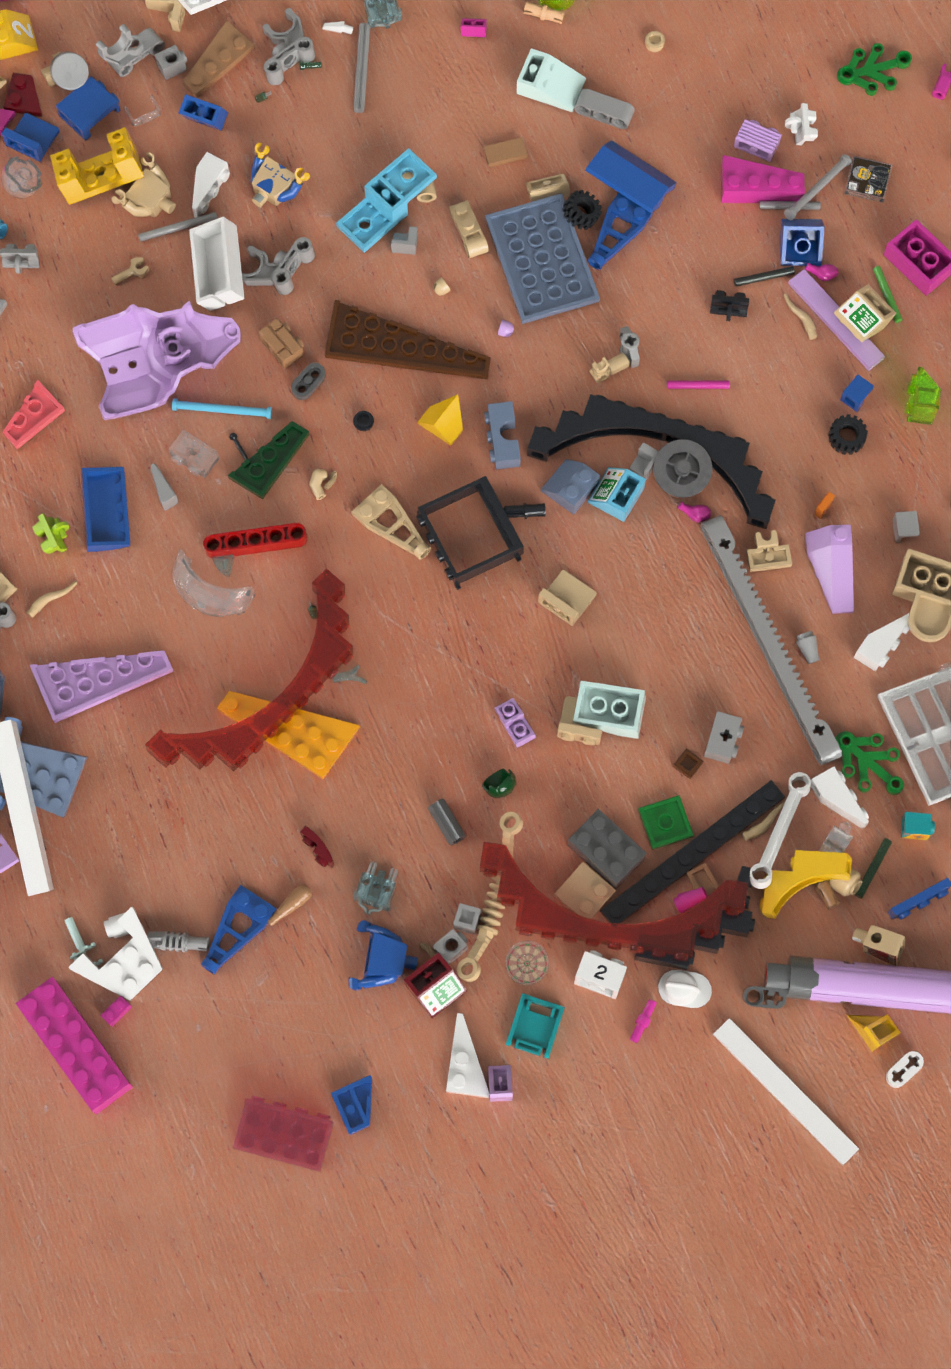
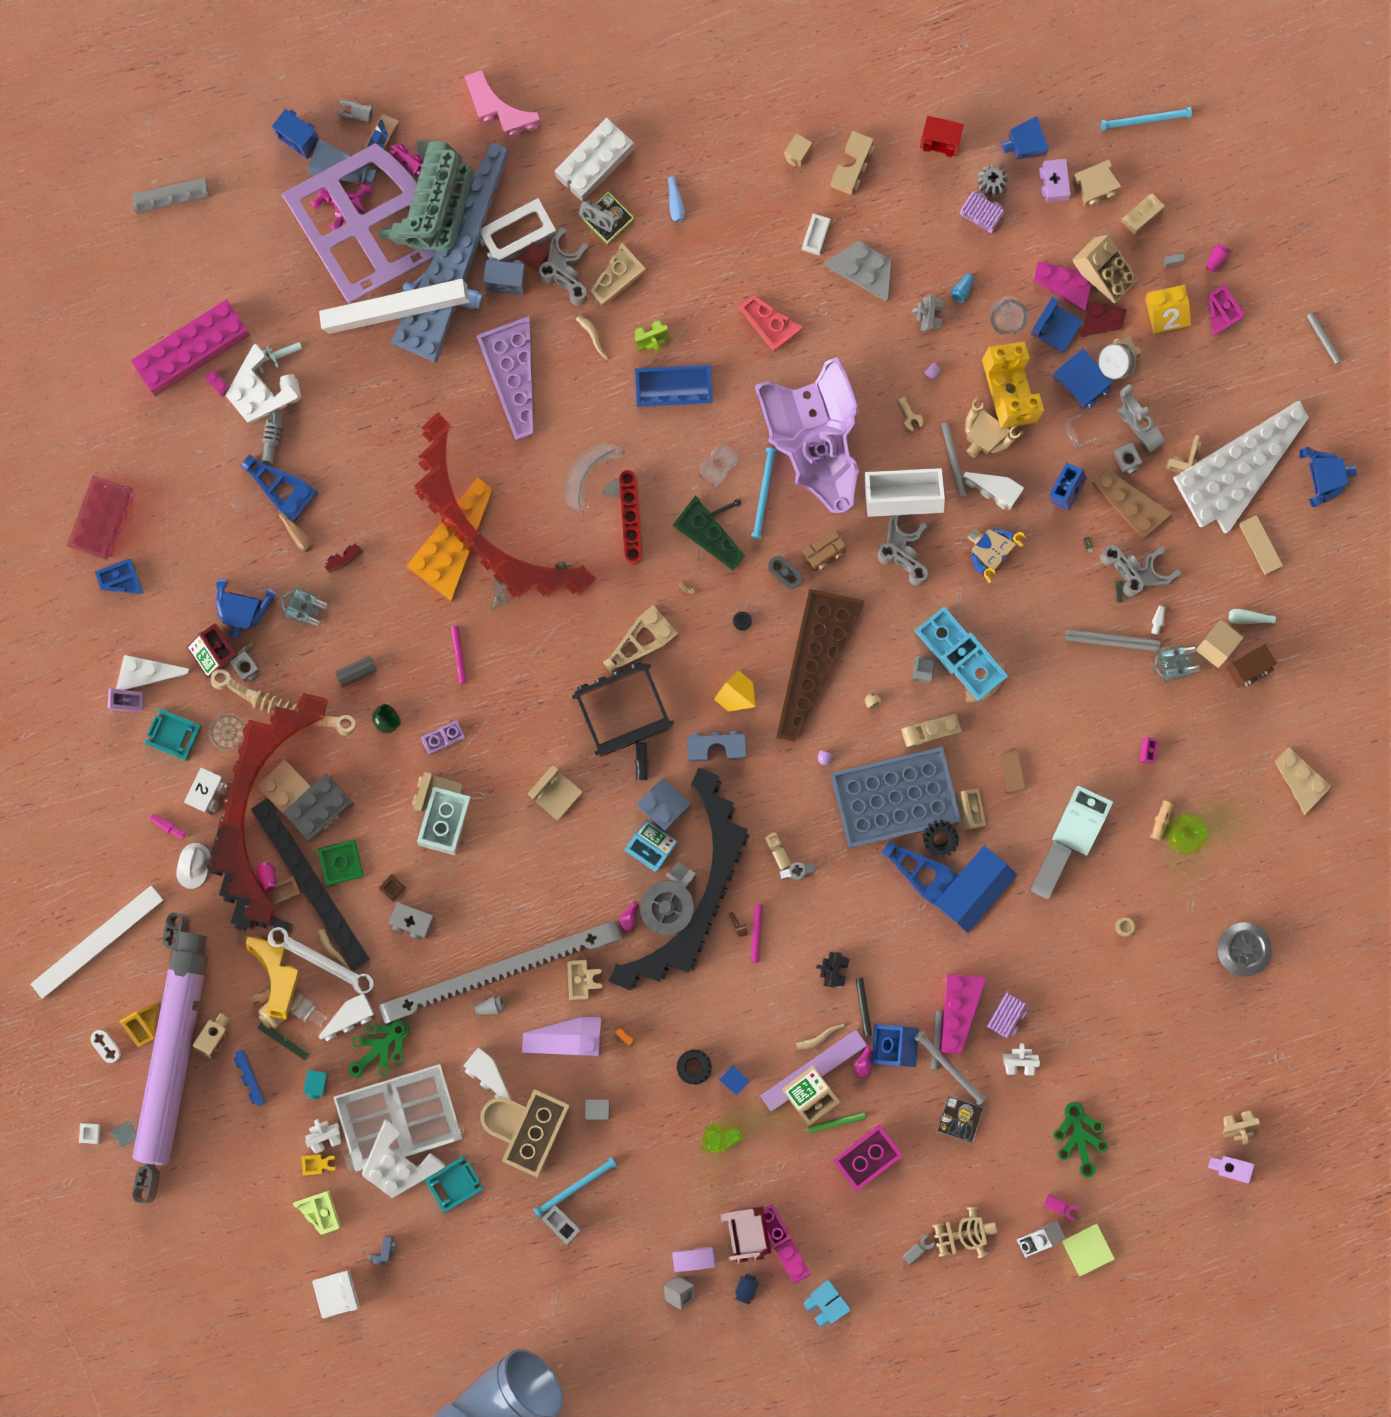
camera: 100 degrees right, 10 degrees up
(82, 251) = (933, 371): none -> lavender hinge
(166, 494) = (685, 438): light grey slope -> none
(315, 483) = (685, 574): tan arm -> none
(420, 713) = (458, 655): none -> dark pink bar
(467, 919) = (266, 682): light grey panel -> none
(697, 400) = (741, 930): none -> reddish brown hand

